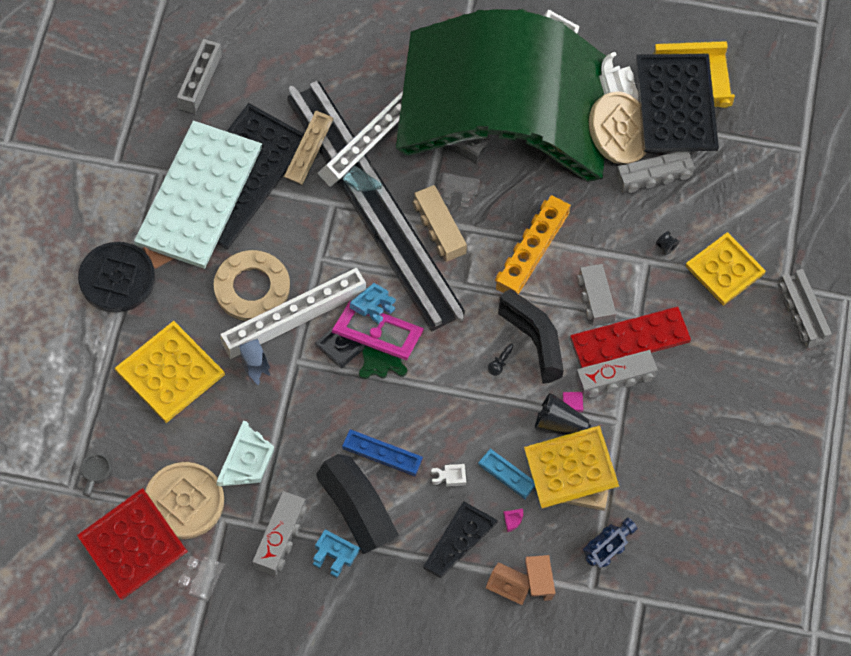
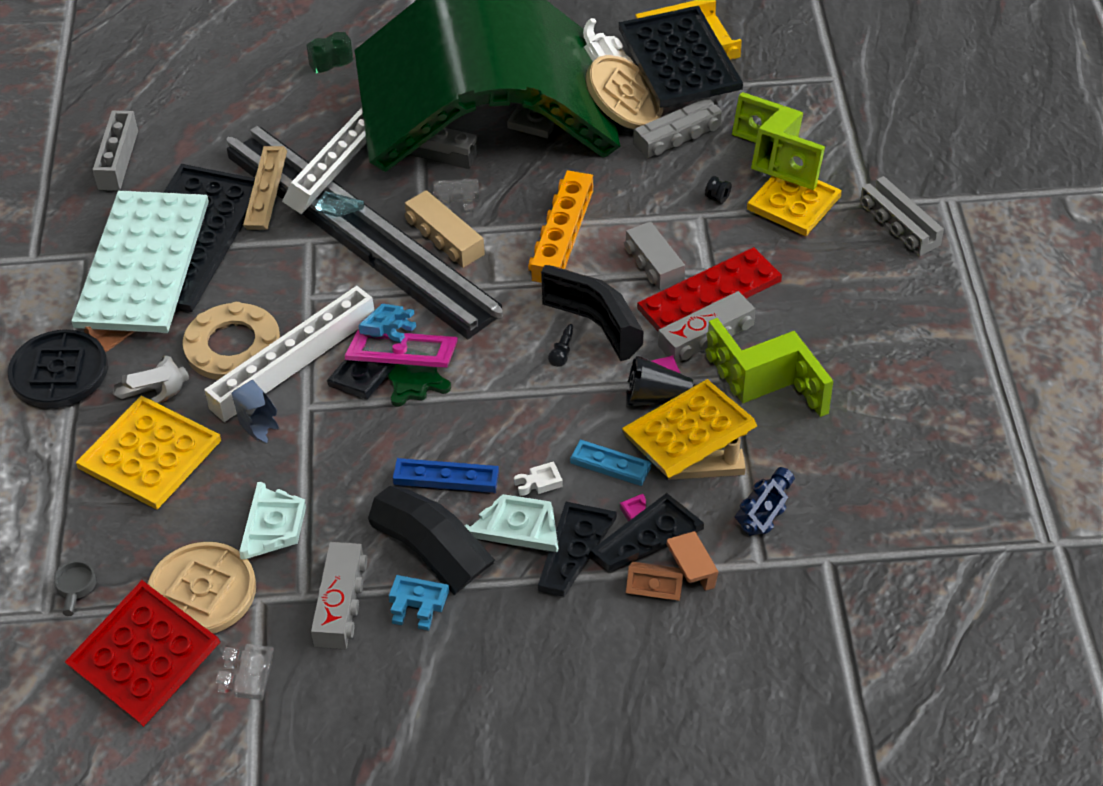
camera: 10 degrees left, 15 degrees down
(191, 309) = (165, 379): none -> light grey piece
(390, 16) = (329, 52): none -> clear green brick
(423, 509) = (518, 523): none -> light aqua wing
(518, 542) = (646, 533): none -> black wing
(649, 427) = (769, 367): none -> lime bracket
(731, 207) = (778, 141): none -> lime bracket

